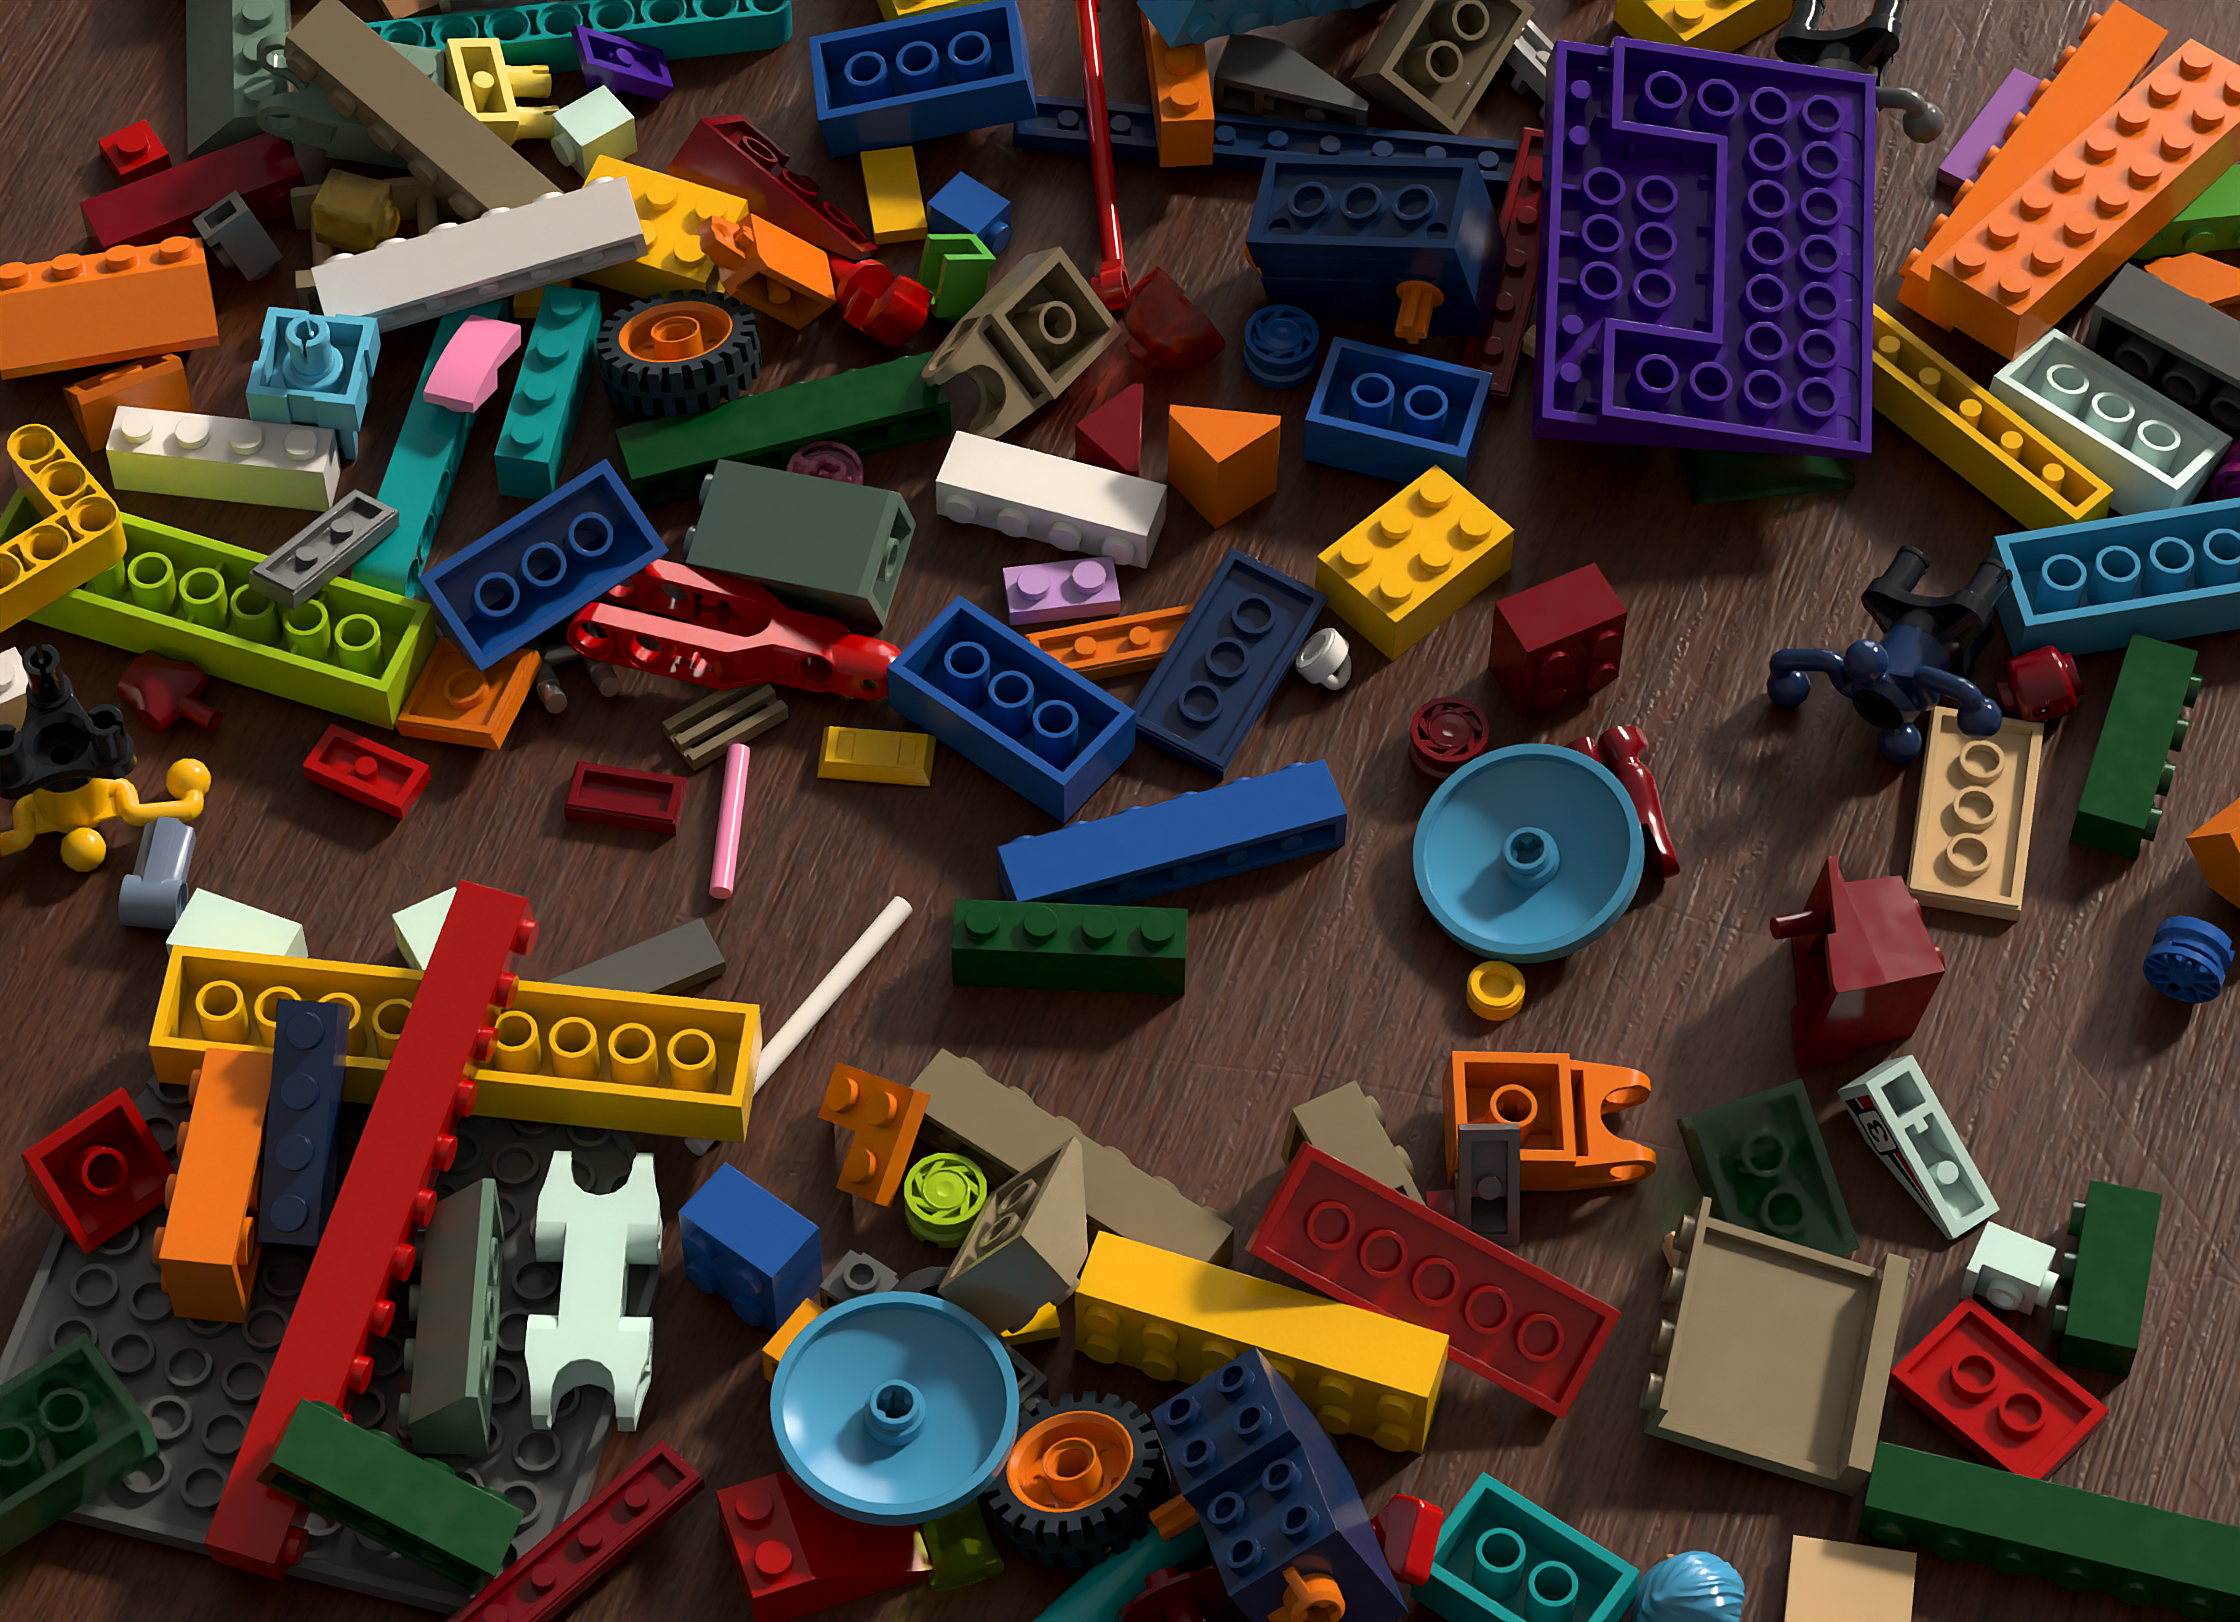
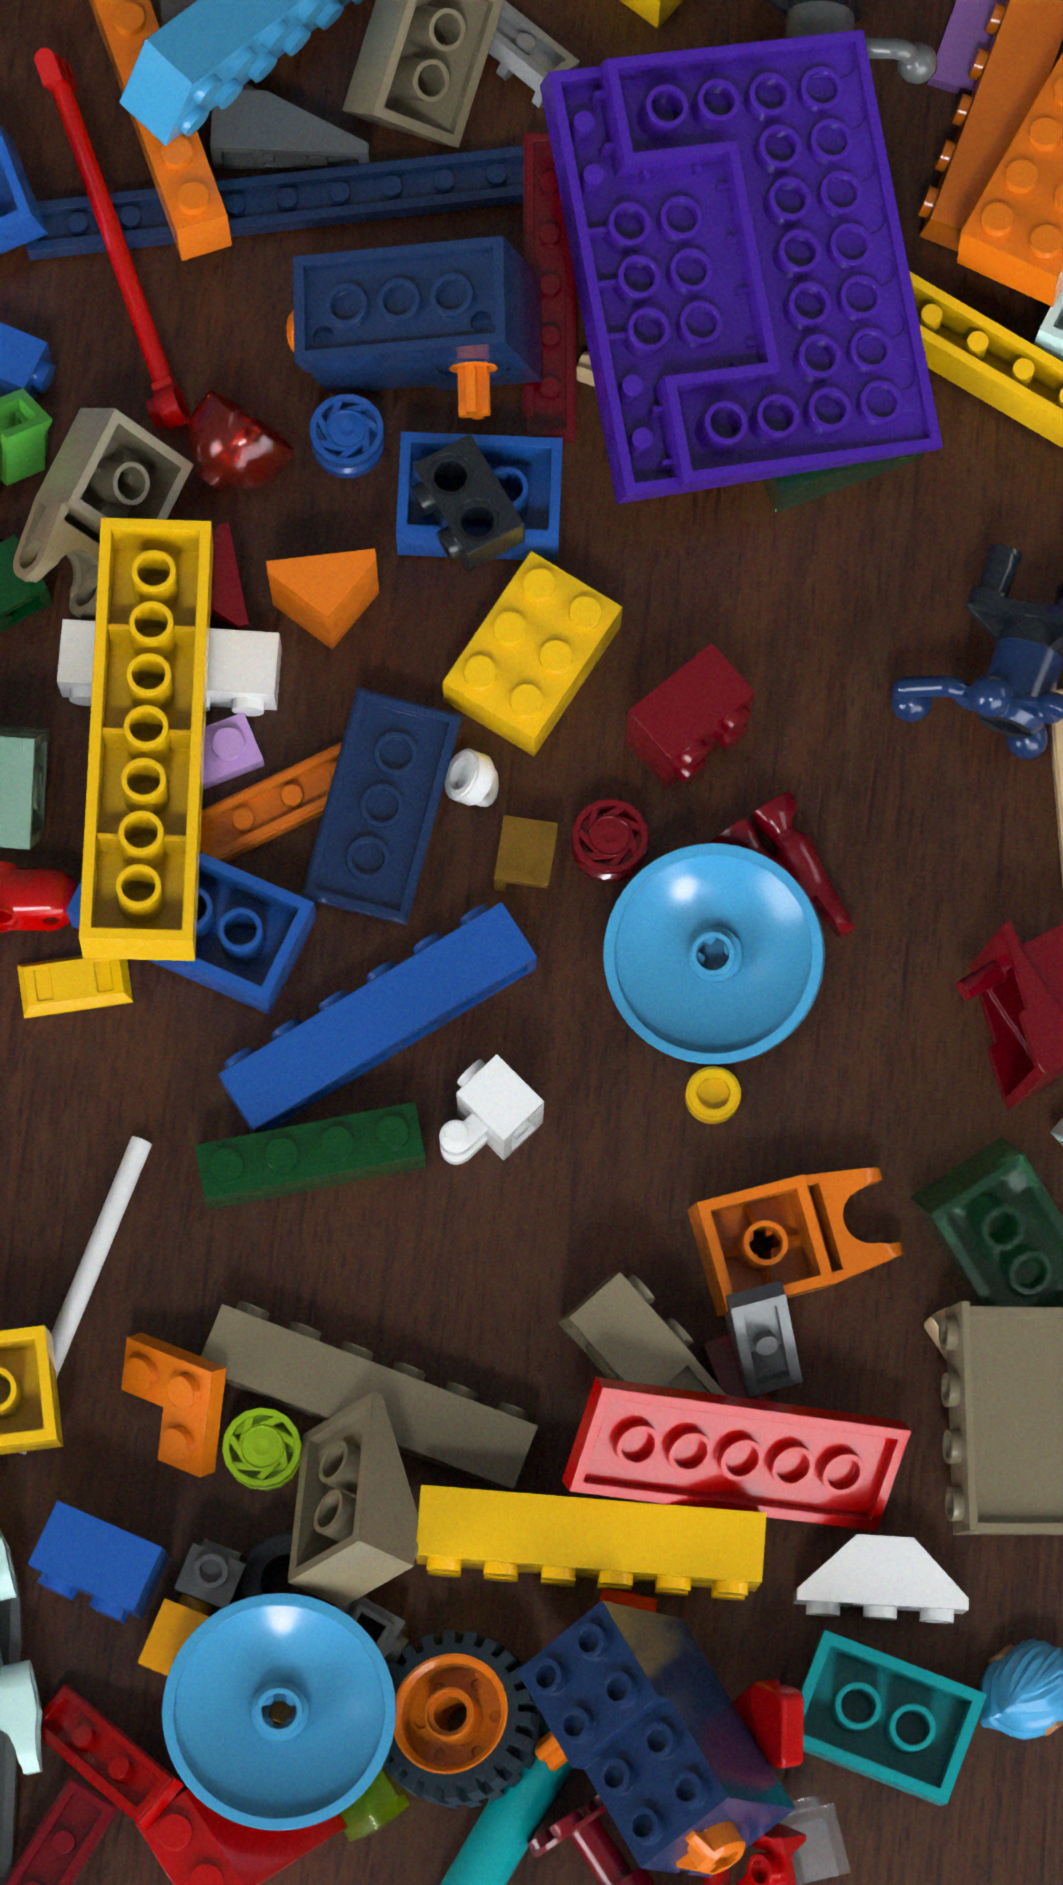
camera: 15 degrees left, 20 degrees up
(705, 1432) = (107, 1757): none -> red tile
(1009, 529) = (147, 740): none -> yellow brick
(1265, 942) = (495, 1111): none -> white brick
(1360, 726) = (525, 852): none -> pearl gold panel
(1382, 399) = (477, 499): none -> black brick
(1557, 1461) = (881, 1578): none -> white slope

